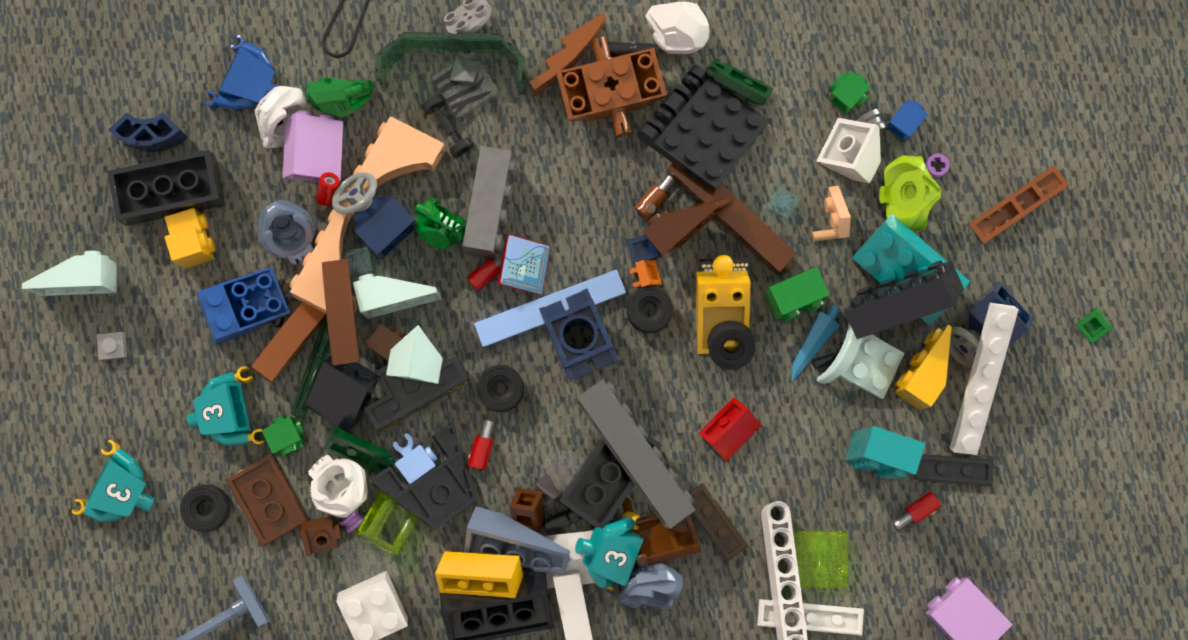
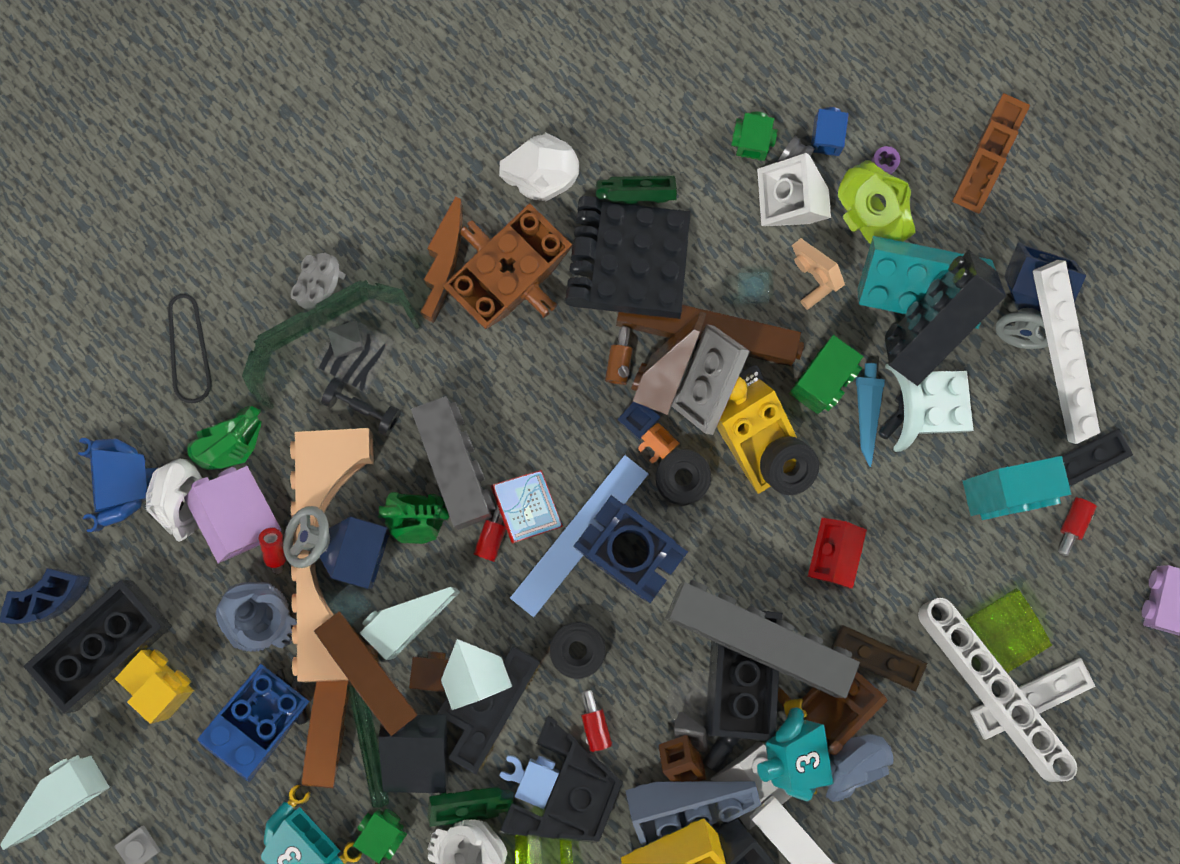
camera: 30 degrees left, 0 degrees up
(622, 48) = (498, 221): black piece -> none
(709, 248) = (710, 379): none -> light grey tile
(928, 372) = (1004, 375): yellow slope -> none
(1094, 325) = (1136, 233): green slope -> none

